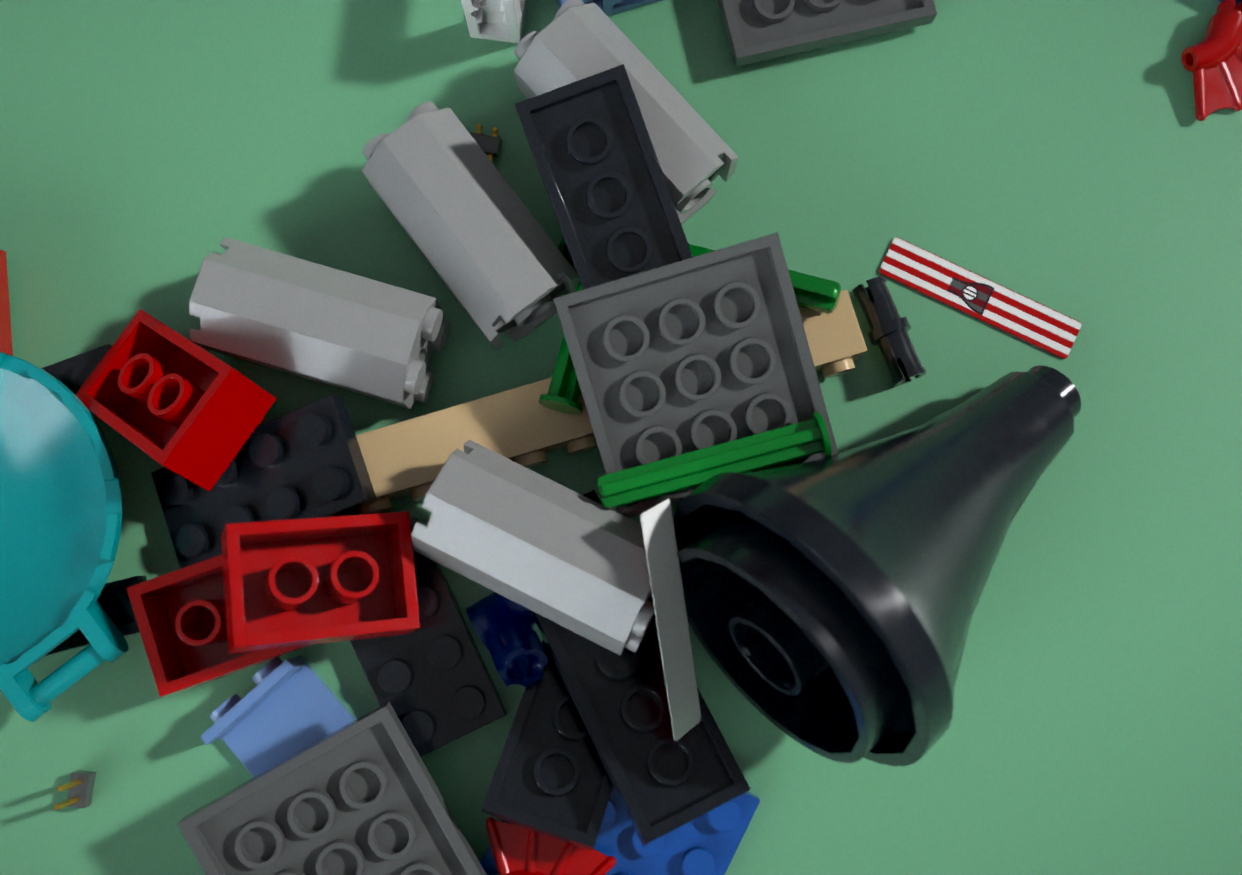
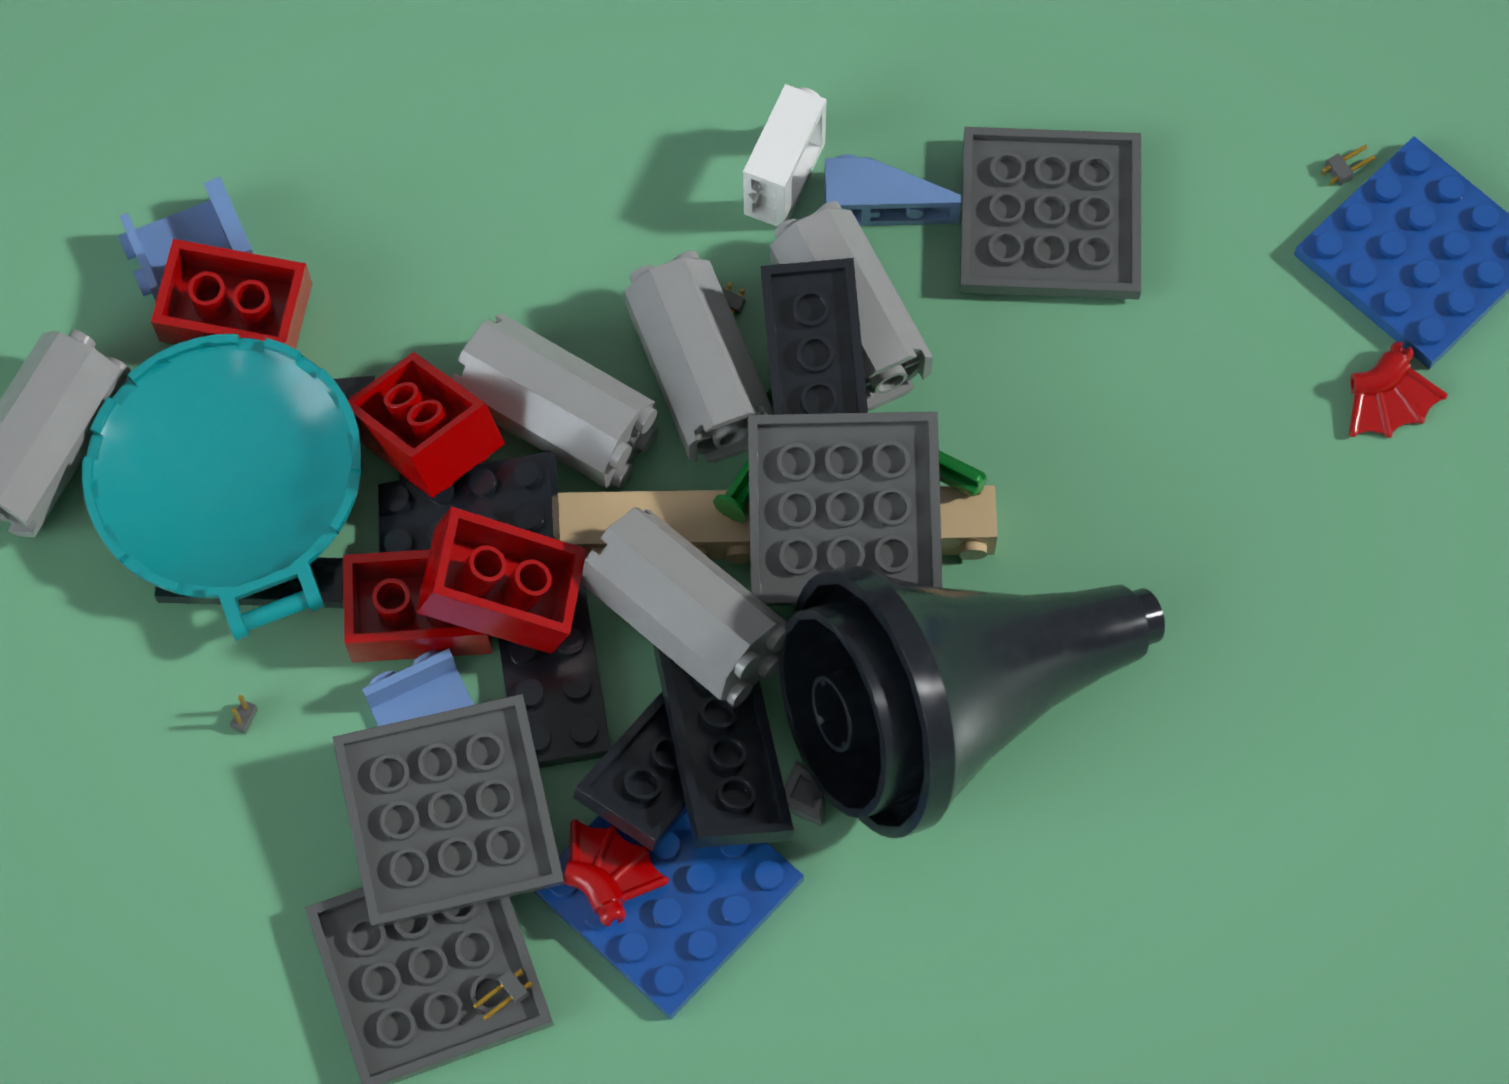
camera: 20 degrees right, 15 degrees down
(510, 638) = (634, 679): clear blue piece -> none
(671, 617) = (768, 674): white sticker -> none
(729, 457) = (797, 572): green axle -> none
(729, 705) = (804, 795): none -> dark grey tile
(889, 331) = (1026, 534): black pin -> none
(980, 298) = (1117, 531): sticker -> none

